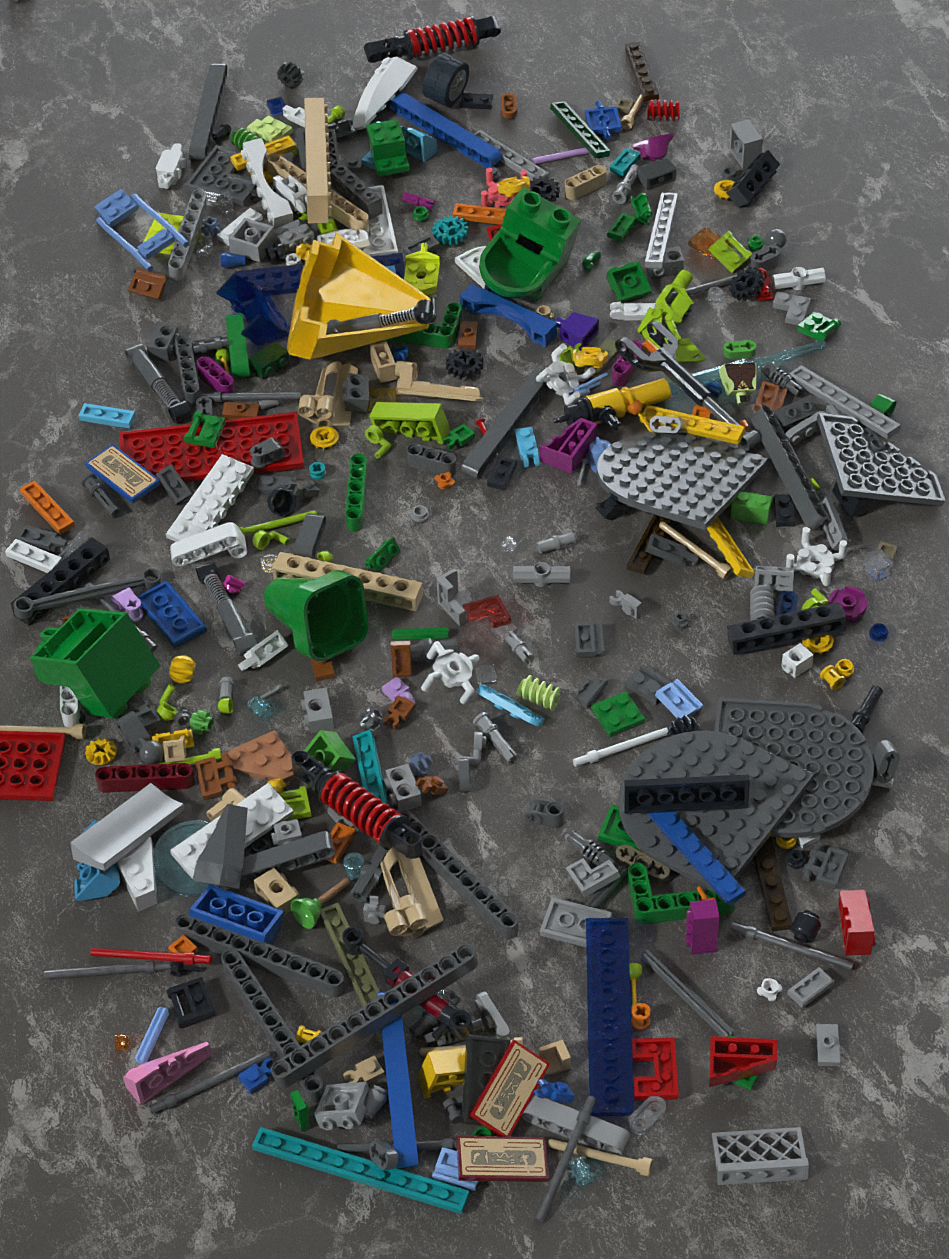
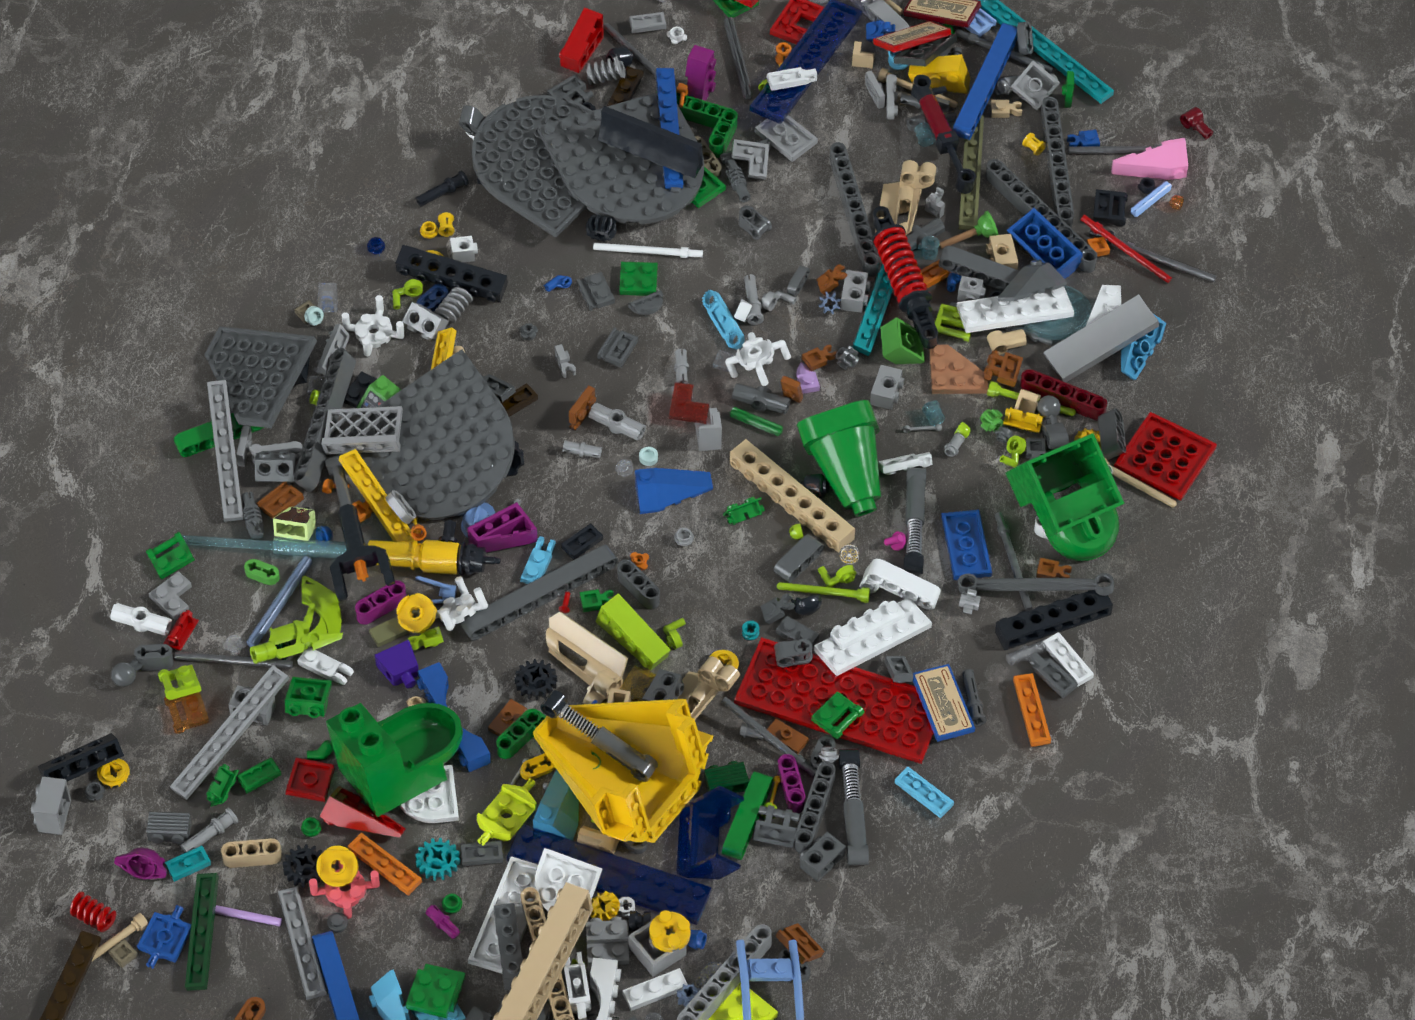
camera: 155 degrees left, 5 degrees up
(78, 755) = (1112, 434): none -> dark grey beam
(128, 602) = (1001, 562): lavender piece -> none
(141, 561) = (969, 601): none -> light grey gear
(144, 1154) = (1194, 119): none -> dark red pin
(162, 1043) = (1146, 185): none -> black plate
(182, 669) = (984, 475): yellow piece -> none
(195, 399) = (828, 754): none -> light grey plate
(251, 233) = (669, 920): none -> yellow plate
(277, 784) = (951, 343): yellow plate -> none
(356, 492) = (726, 590): green beam -> none
(370, 1024) = (982, 107): dark grey beam -> none
(460, 546) = (663, 487): none -> blue wedge
(496, 565) = (648, 456): none -> light aqua tile
(497, 716) = (742, 310): none -> white slope
(516, 1020) = (875, 89): none -> light grey plate
(538, 693) = (693, 317): yellowish green piece -> none
(577, 571) = (581, 407): none -> dark orange plate
(586, 243) = (310, 779): none -> red tile
(605, 965) = (791, 78): none -> white hinge
(678, 699) = (583, 261): light blue plate -> none
(688, 676) = (558, 281): none -> blue arm
(707, 333) = (279, 602): none -> sand blue axle
(741, 445) = (362, 442): none -> light grey fence
(747, 283) = (189, 633): black gear -> none
(755, 243) = (142, 693): green plate -> none
(805, 896) = (605, 71): none -> light grey piece
(855, 596) = (382, 288): magenta plate -> none
(875, 544) = (313, 315): none -> light aqua tile

